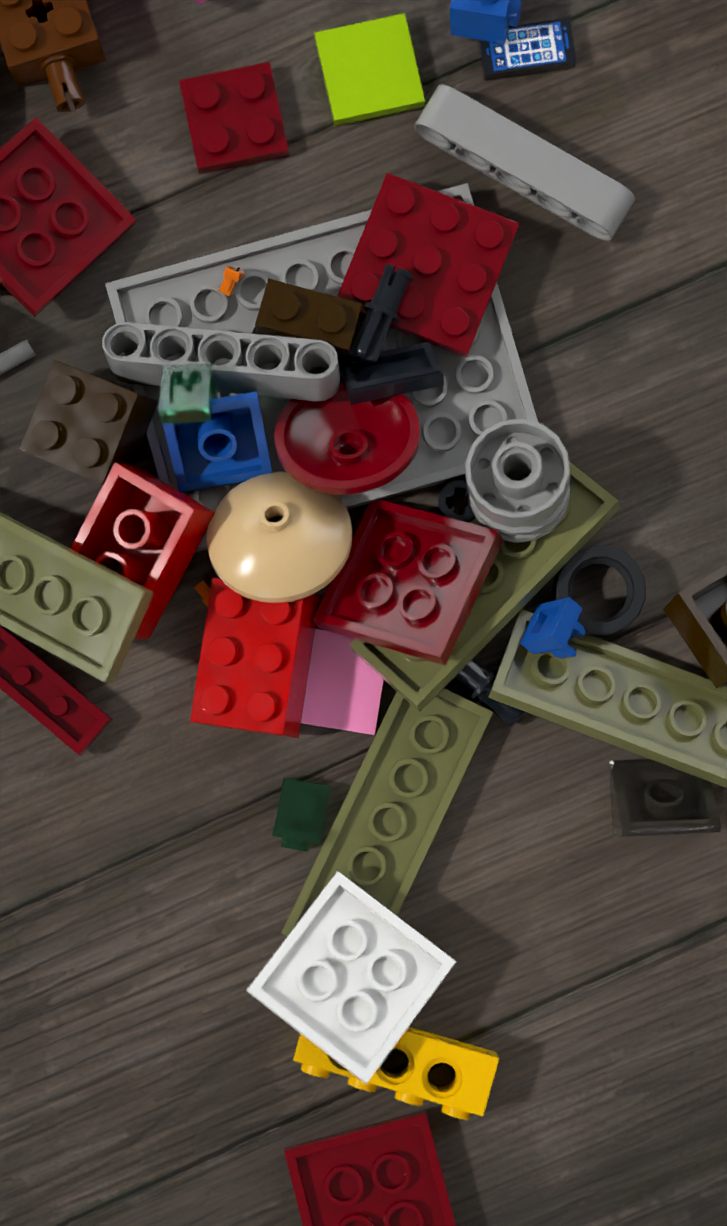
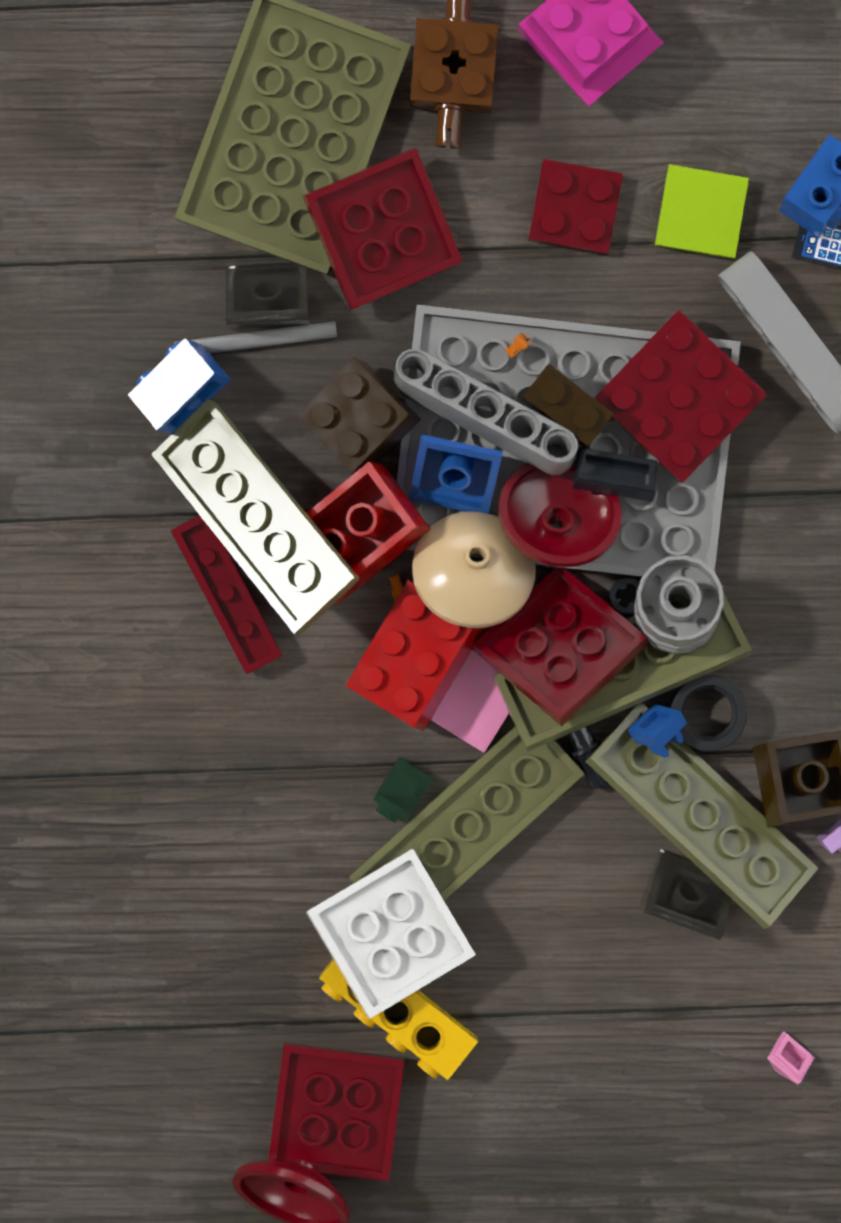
camera: 20 degrees right, 5 degrees up
(187, 393) = (448, 433): clear green bracket -> none
(381, 313) = (626, 426): black axle -> none

